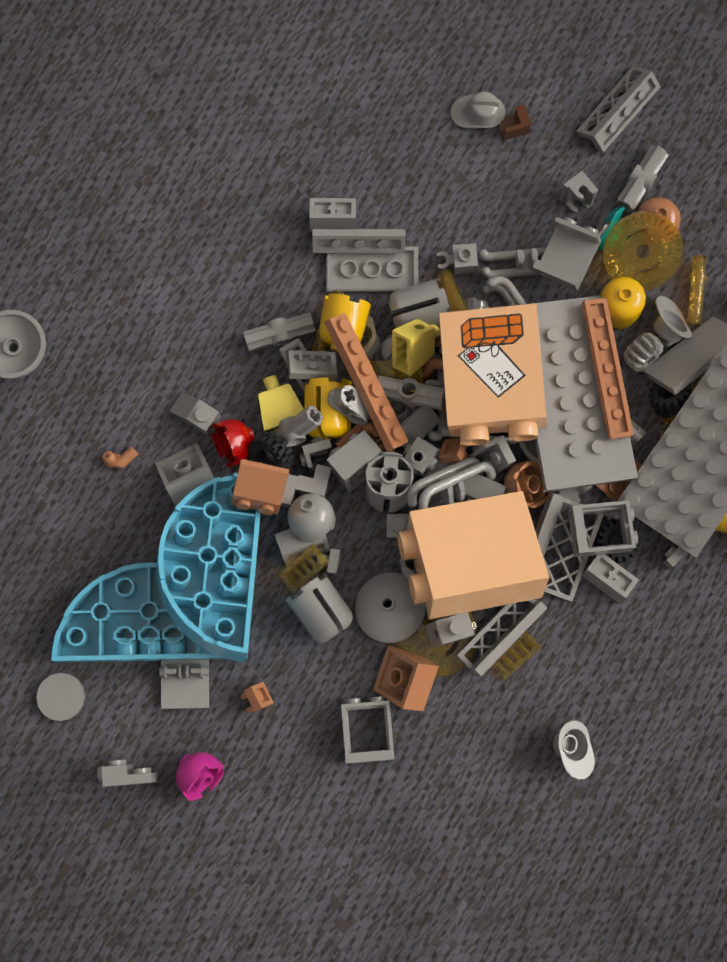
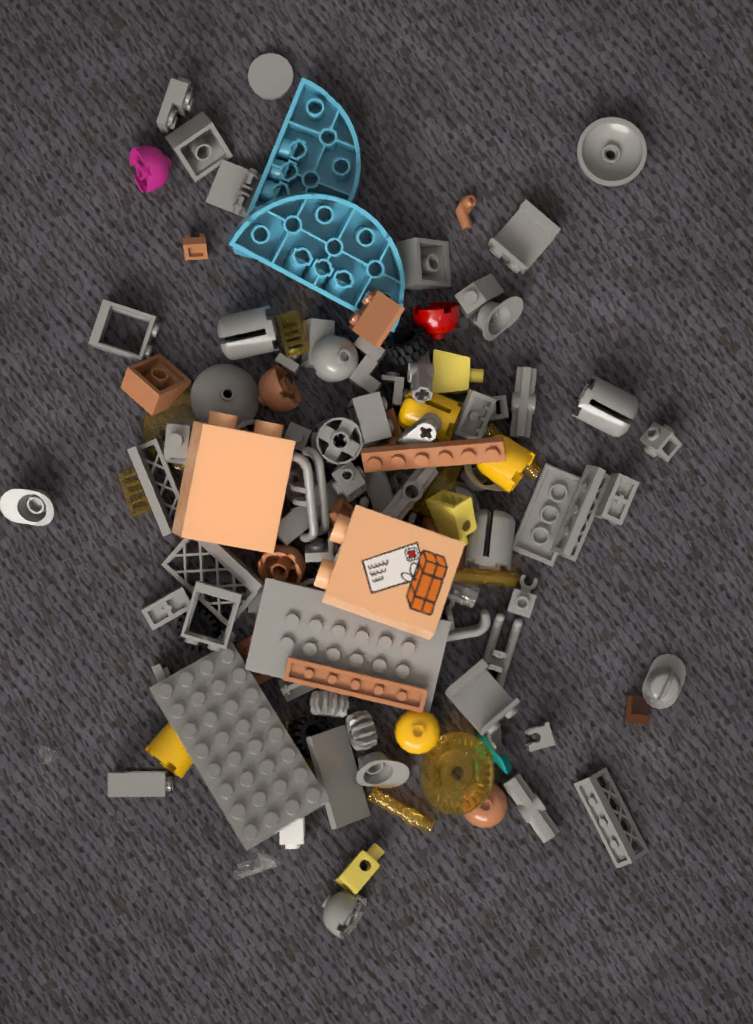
camera: 115 degrees right, 5 degrees up
(123, 394) = (524, 238): none -> light grey panel
(157, 736) = (198, 146): none -> light grey slope
(208, 387) = (497, 317): none -> light grey piece
(251, 256) = (611, 397): none -> light grey cylinder
(264, 195) = (660, 441): none -> light grey brick
(364, 559) = (277, 391): none -> nougat cylinder
(635, 390) = (329, 704): none -> light grey gear

